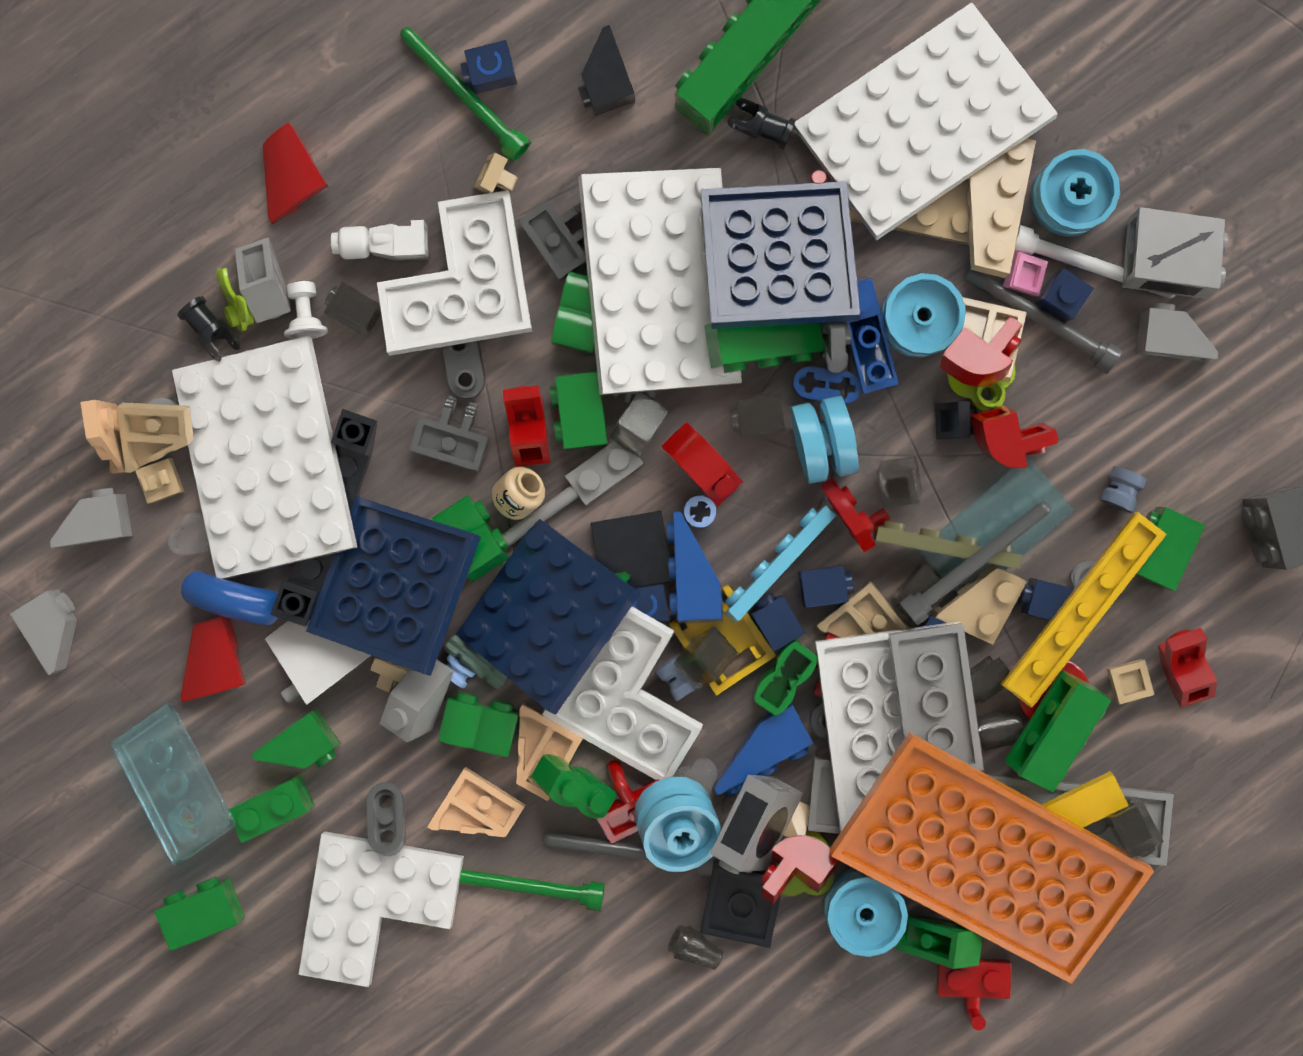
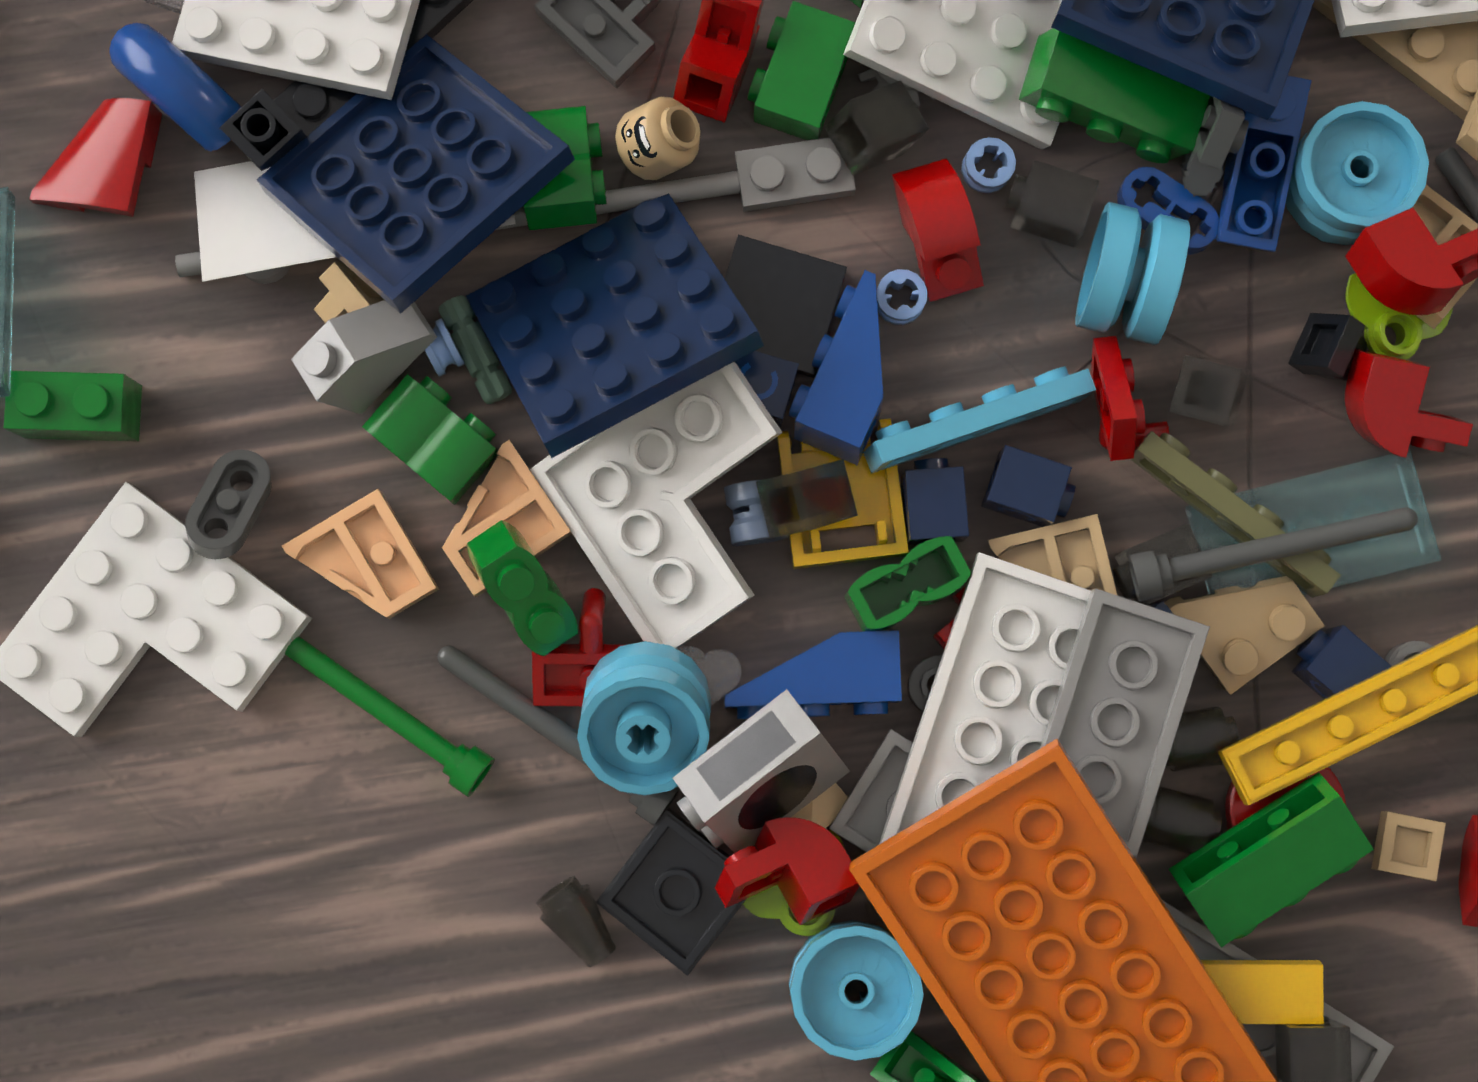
camera: 25 degrees right, 5 degrees down
(301, 744) = (168, 336): green slope -> none
(701, 406) = (976, 179): none -> light blue bush

